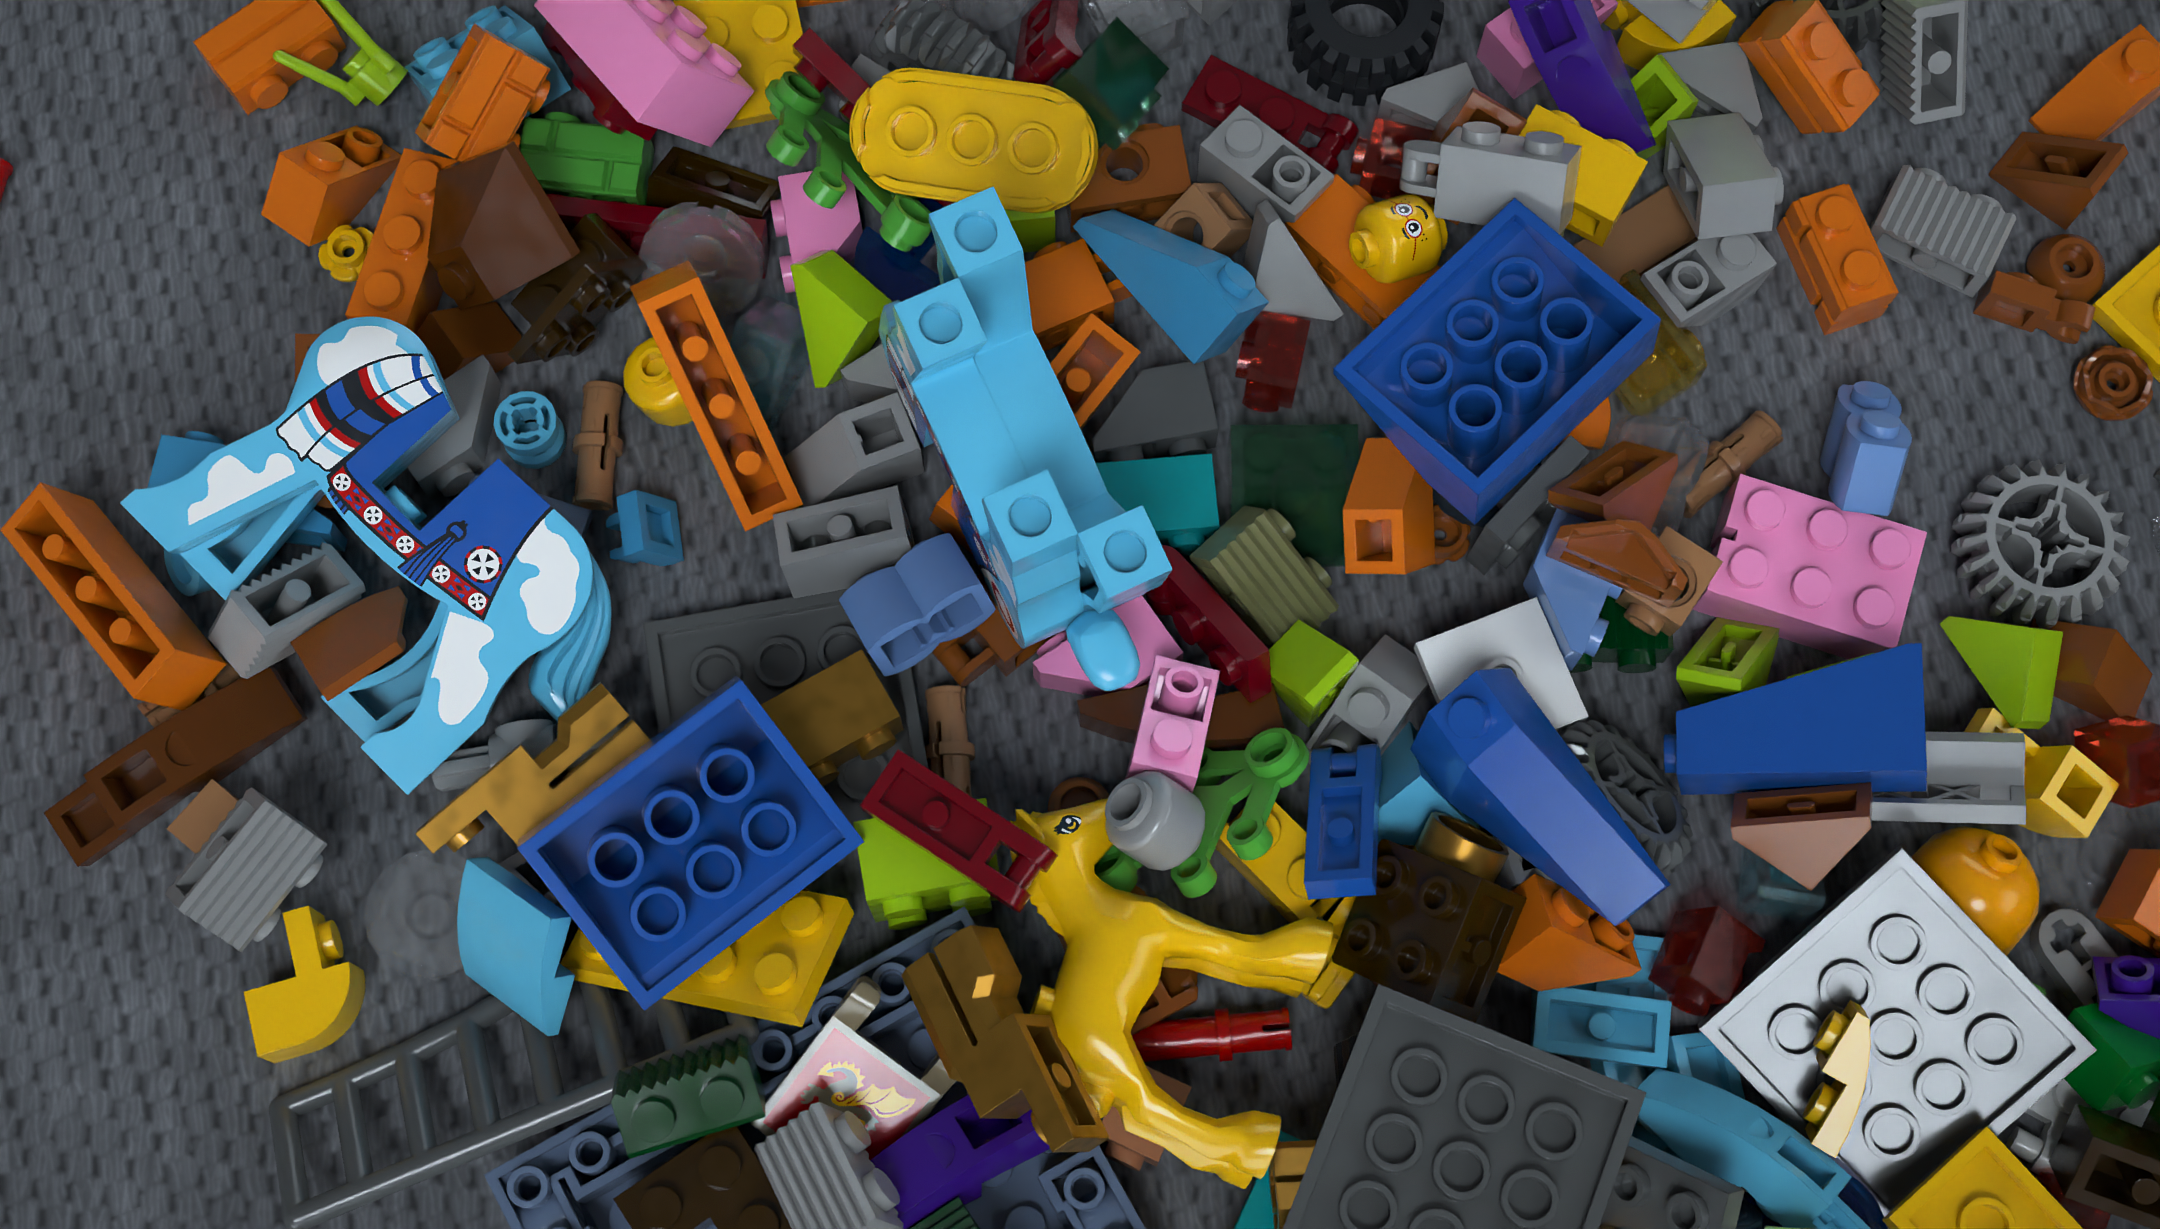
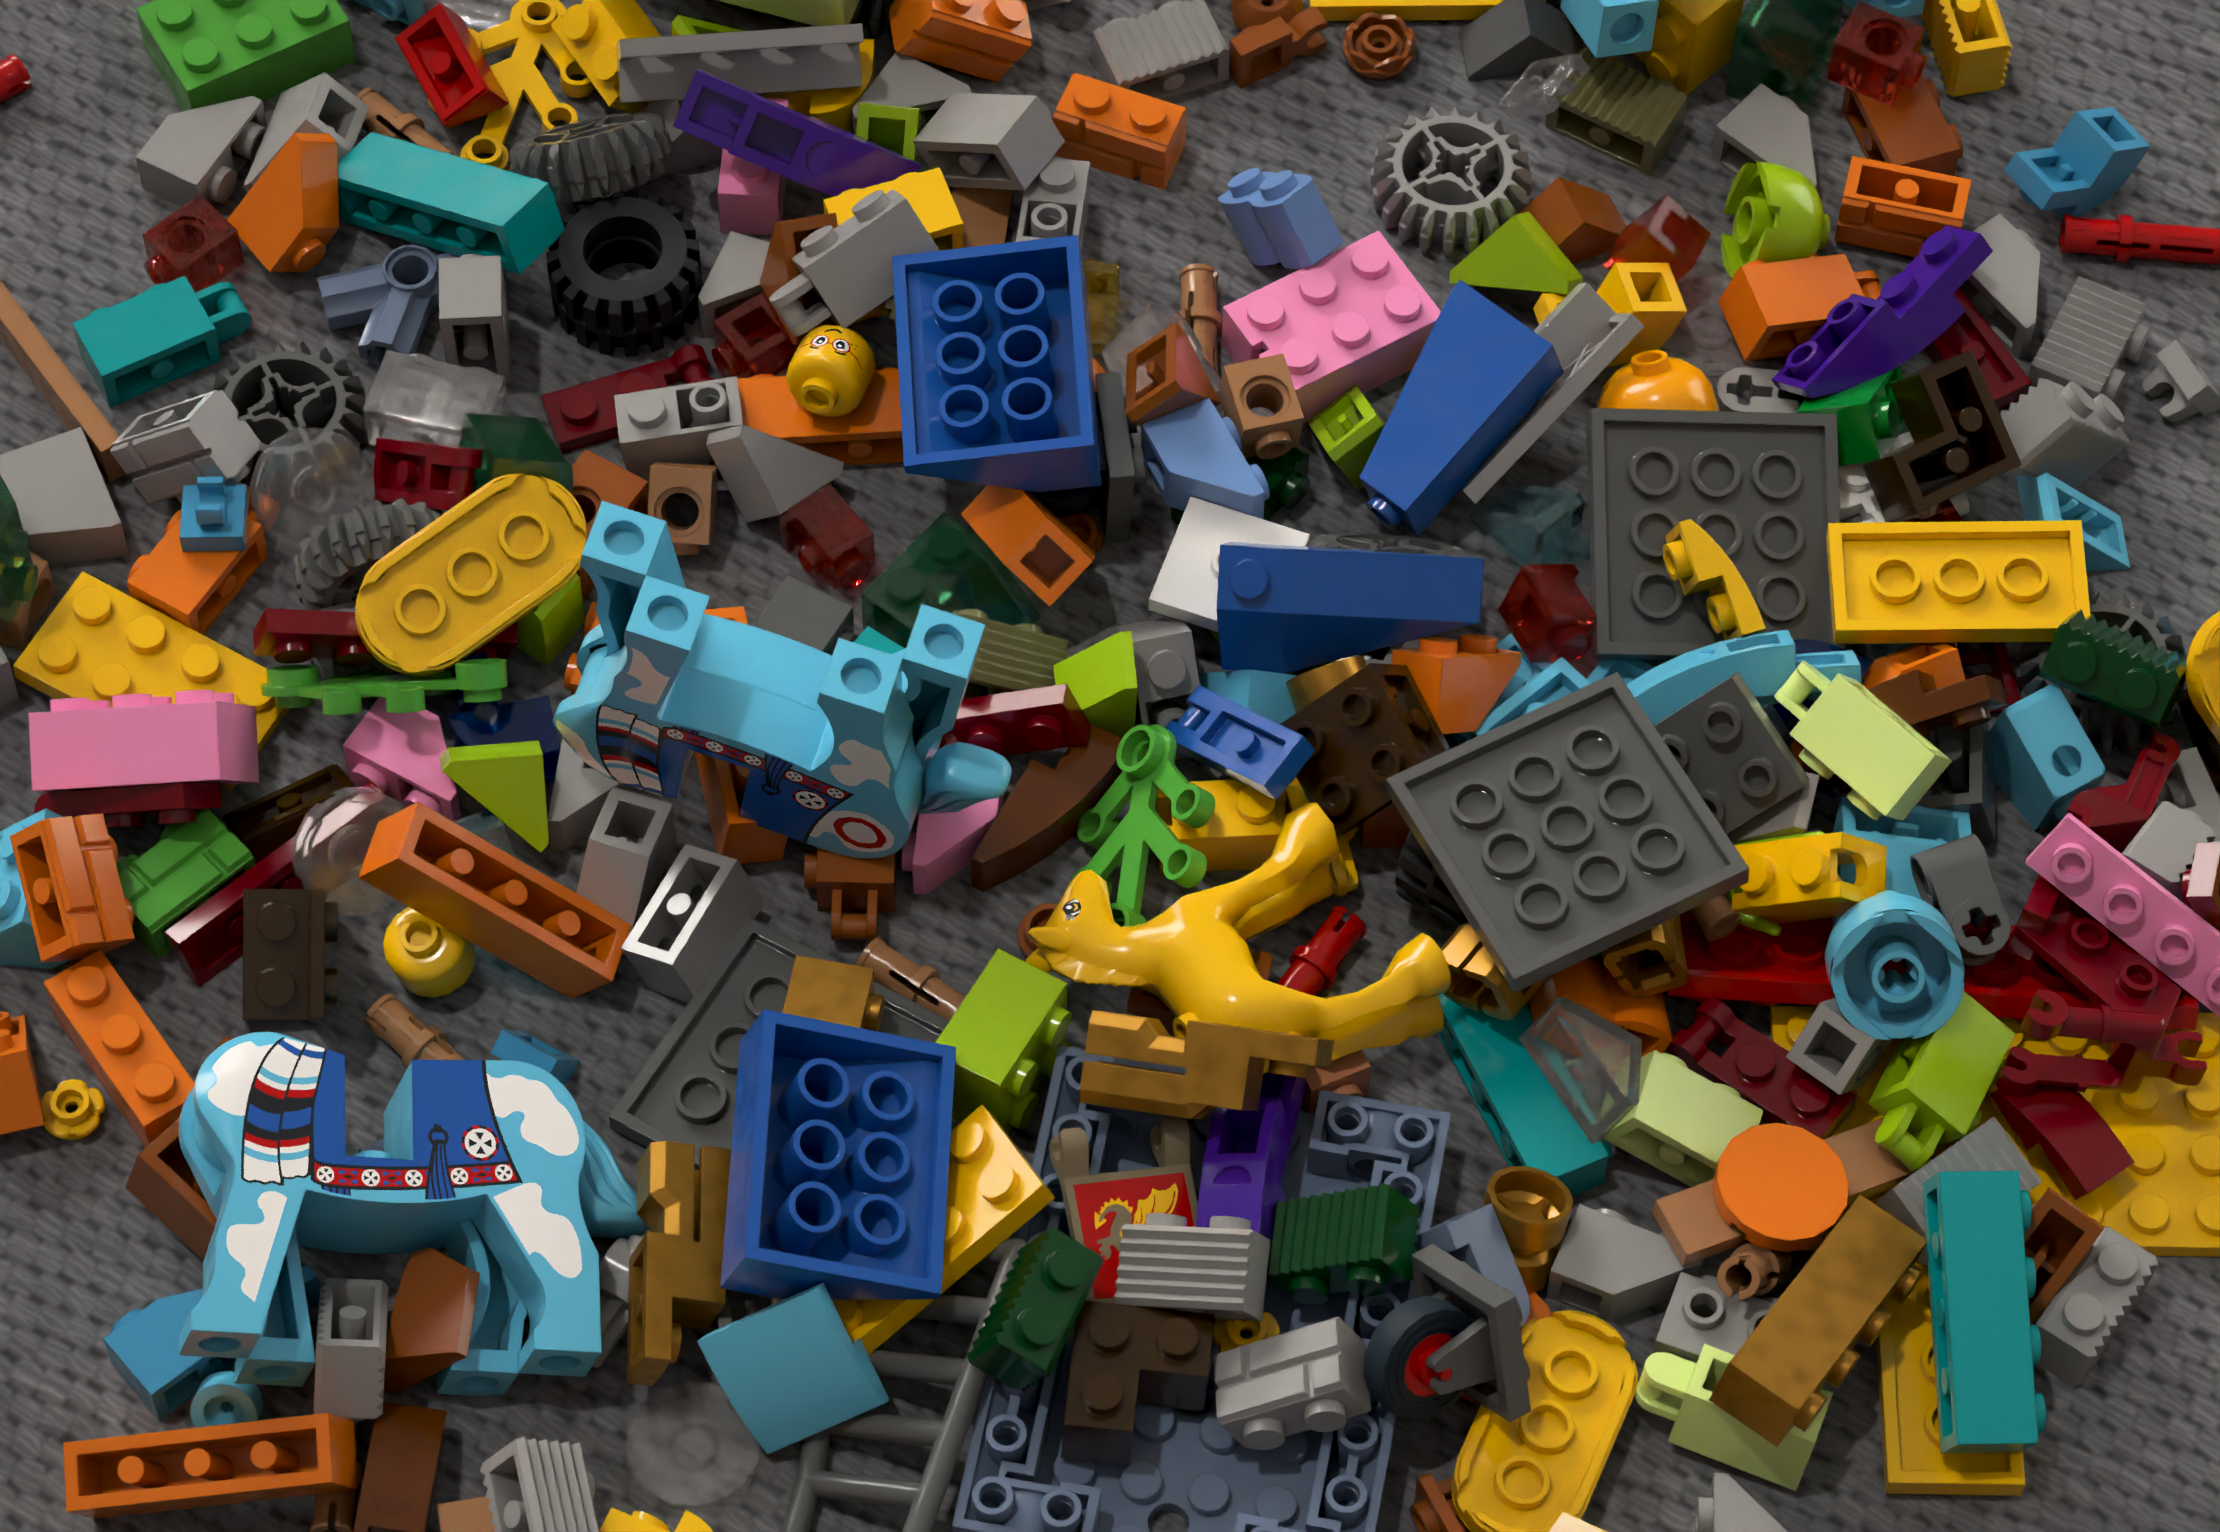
camera: 50 degrees left, 15 degrees down
(493, 227) = (189, 954): reddish brown slope -> none
(539, 441) = (369, 1094): medium azure wheel -> none
(916, 604) = (793, 897): medium blue brick -> none
(956, 829) = (1009, 974): dark red plate -> none
(1154, 820) = (1124, 849): light grey head -> none
(1174, 721) = (1068, 808): bright pink slope -> none
(1185, 287) = (736, 534): dark azure slope -> none
(1622, 555) = (1224, 397): dark orange slope -> none
(1803, 828) = (1521, 461): dark orange slope -> none

